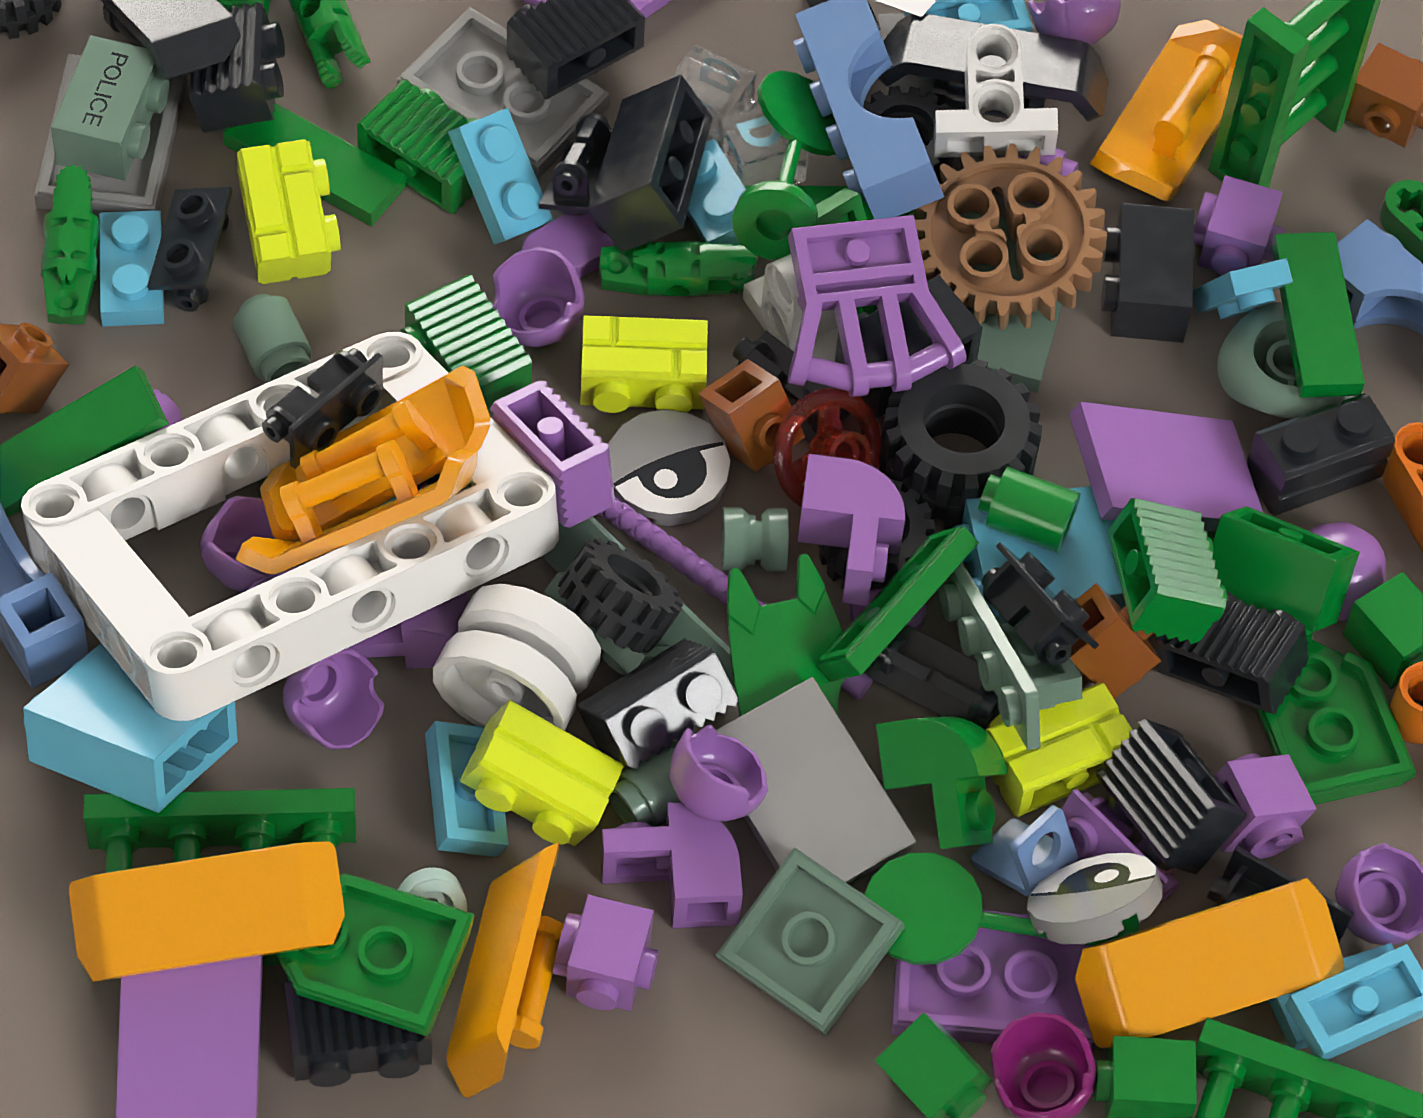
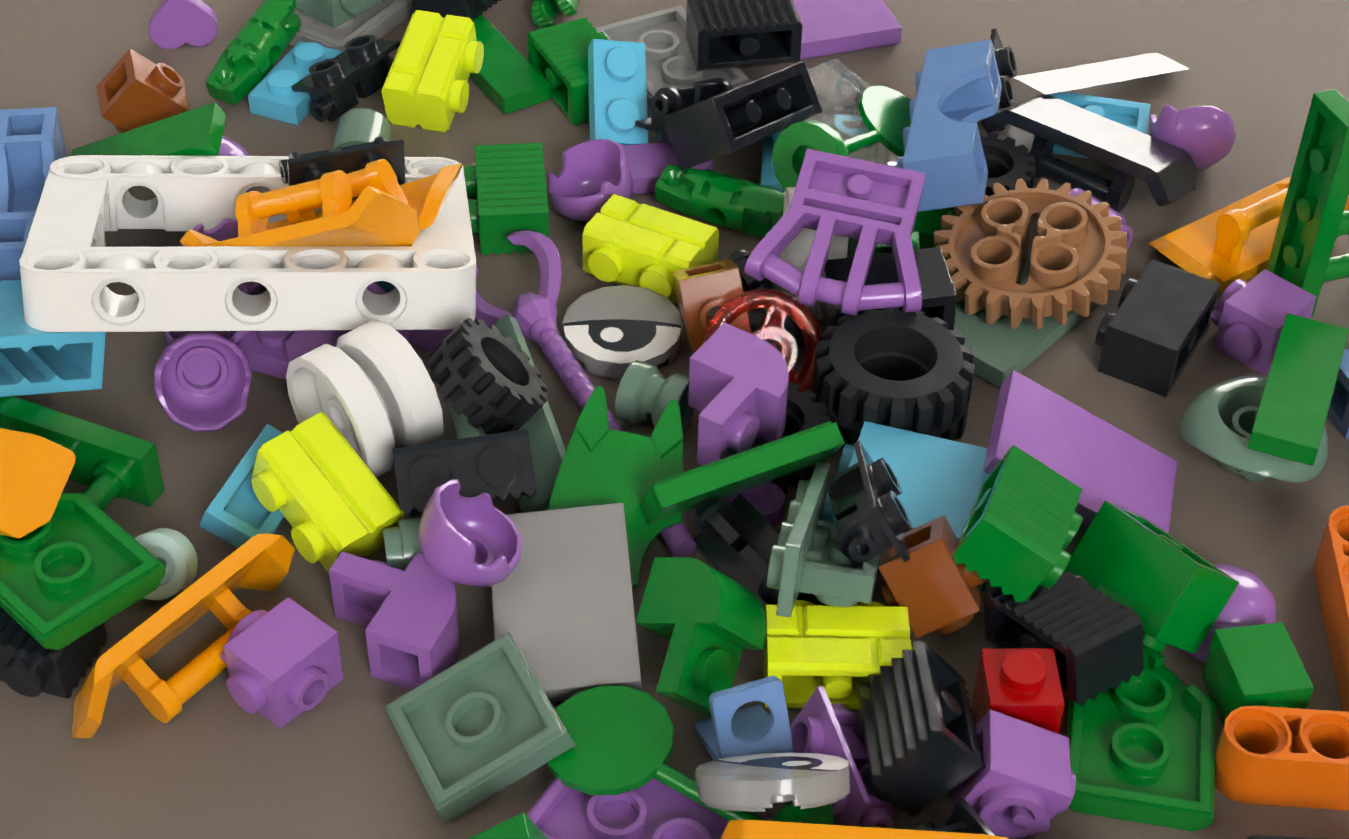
camera: 30 degrees right, 15 degrees down
(561, 448) = (506, 262): medium lavender brick -> none
(998, 90) = (1065, 146): white tile -> none
(1029, 508) = (914, 435): green brick -> none
(1228, 725) = (1019, 685): none -> red brick
(1242, 289) = (1236, 347): medium azure plate -> none
(1320, 454) = (1251, 507): black brick -> none

